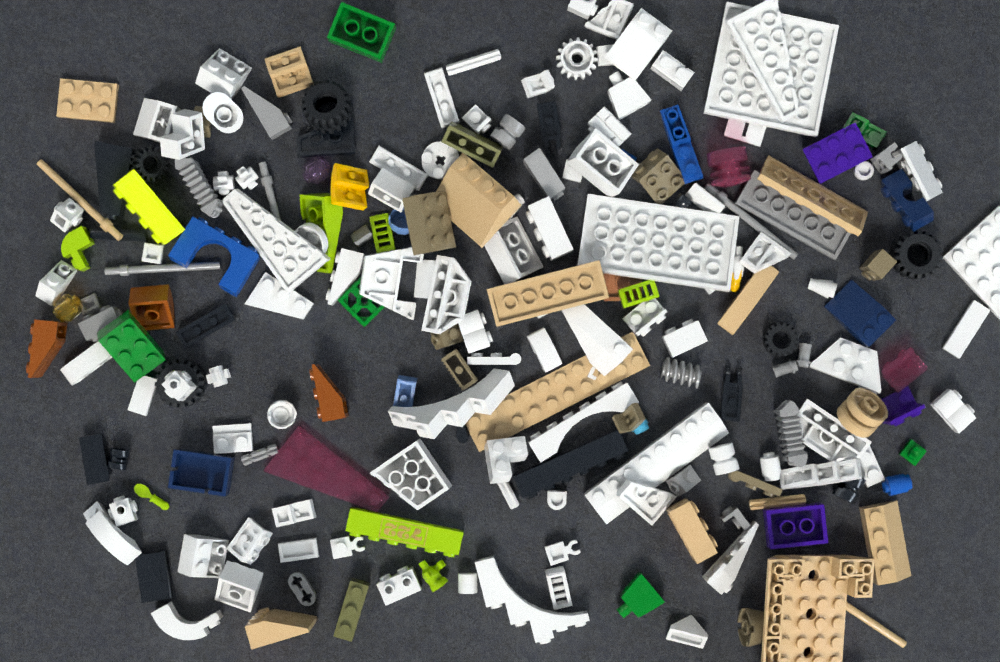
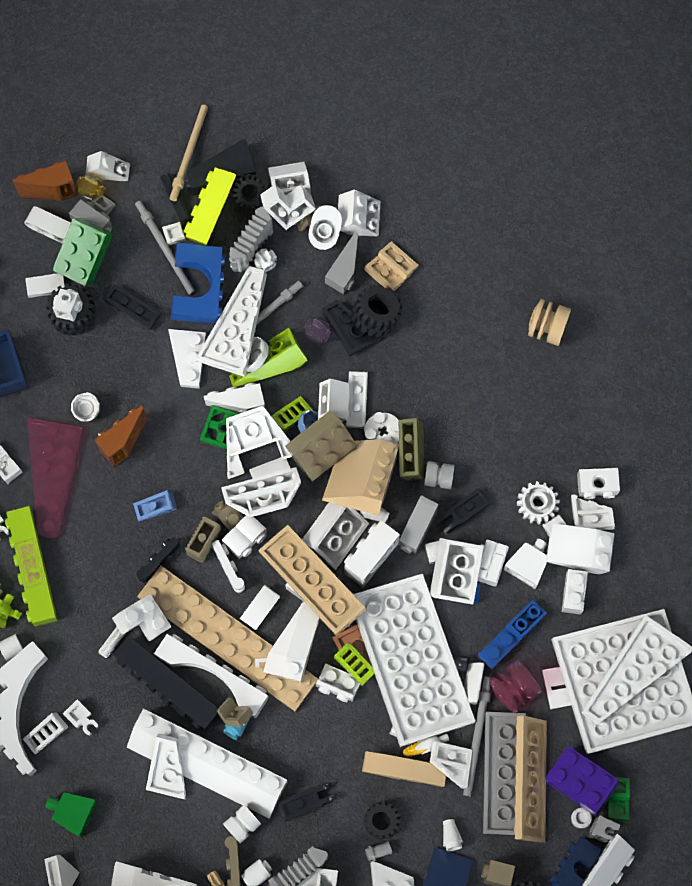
camera: 60 degrees right, 15 degrees down
(67, 215) = (170, 148): white brick -> none
(74, 244) = (146, 166): lime brick -> none
(87, 100) = (277, 119): tan plate -> none
(152, 306) = (126, 255): dark orange slope -> none
(218, 376) = (92, 337): white gear -> none
(232, 438) = (43, 378): white plate -> none
(246, 177) = (280, 276): white gear -> none
(259, 454) = (40, 407): light grey axle -> none
(349, 186) = (317, 363): yellow slope -> none
(361, 32) = (458, 307): green brick -> none
(361, 235) = (279, 397): light grey slope -> none
(413, 475) = (87, 547): white wedge -> none
(441, 97) = (440, 404): white tile -> none
(457, 410) = (162, 551): white arch -> none
(473, 62) = (485, 416): white axle -> none
(477, 120) = (436, 445): white bracket -> none
(538, 84) = (496, 480): white bracket -> none
(556, 499) = (127, 689): white tile -> none
(658, 176) = (471, 629): dark tan bracket -> none
(681, 372) = (302, 742): light grey piece -> none
(683, 481) = (202, 797): light grey bracket -> none
(684, 338) = (336, 729): white brick -> none
(692, 530) = (159, 826): tan brick -> none
(739, 520) = (191, 869): light grey bracket -> none
(785, 368) = (357, 839): light grey pin -> none

